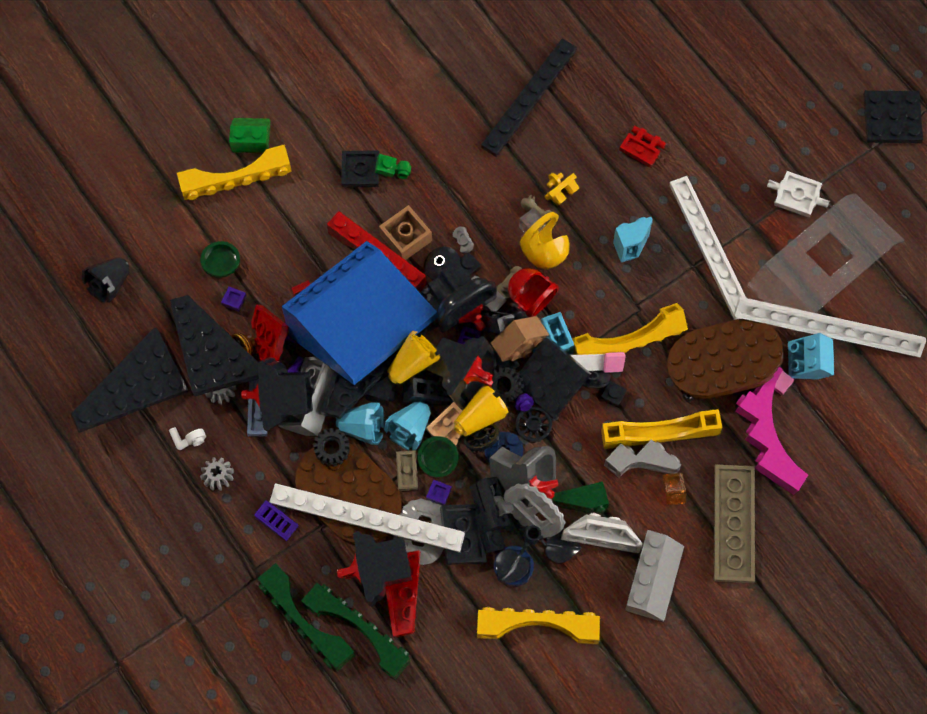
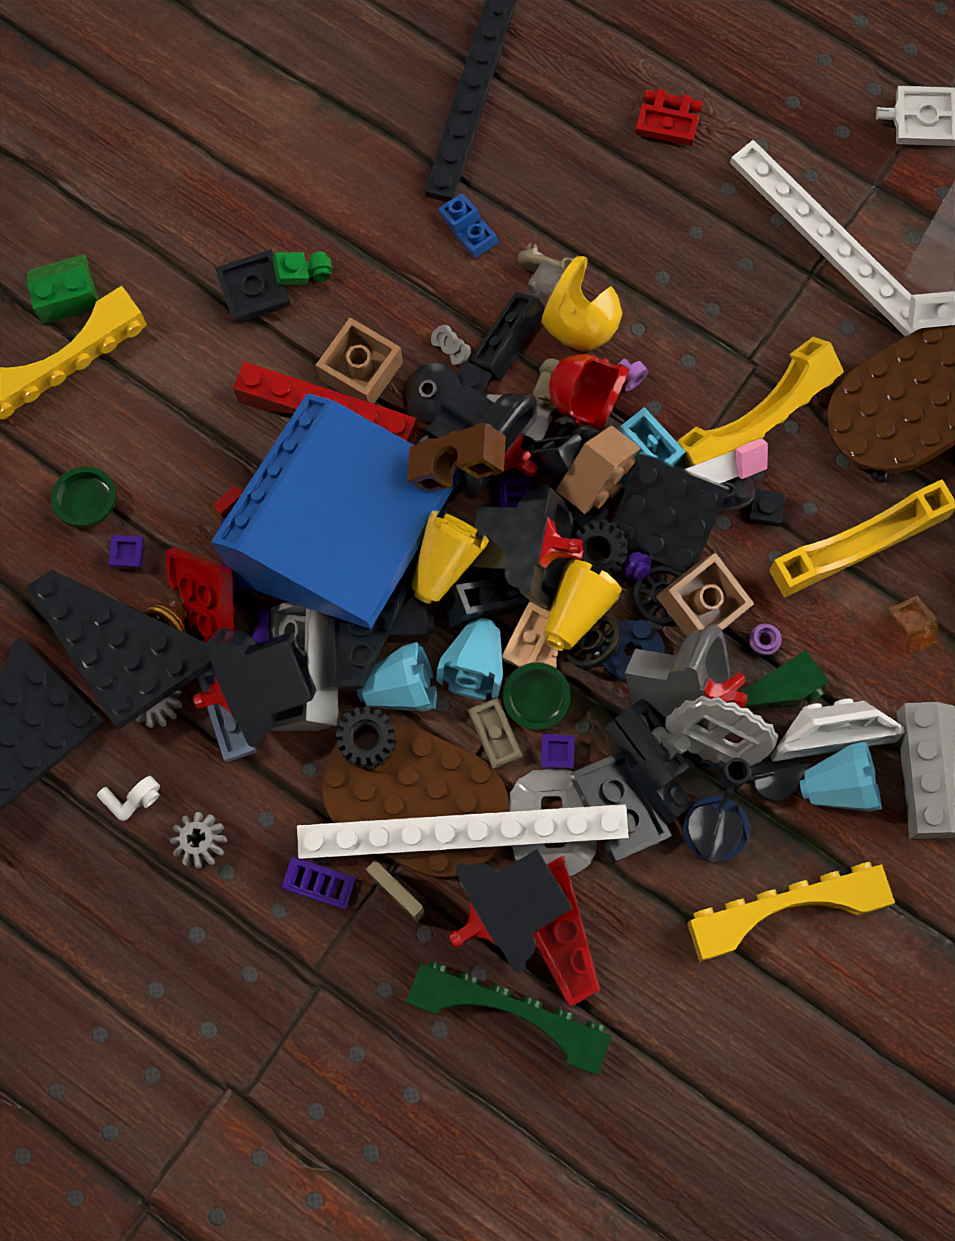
camera: 15 degrees left, 5 degrees up
(317, 538) = (396, 891): none -> dark tan tile
(332, 647) = (482, 1059): dark green arch -> none
(446, 302) = (474, 450): none -> reddish brown arch
(499, 173) = (467, 225): none -> blue slope
(499, 245) = (508, 334): none -> black slope
(555, 431) = (705, 596): none -> medium nougat brick
(556, 194) = (578, 208): yellow hips -> none
(564, 291) = (636, 374): none -> medium lavender tile
(583, 463) = (765, 630): none -> medium lavender plate
(598, 563) = (844, 781): none -> medium azure cone
(631, 238) = (708, 260): medium azure slope -> none
(650, 457) = (862, 587): light grey arch -> none

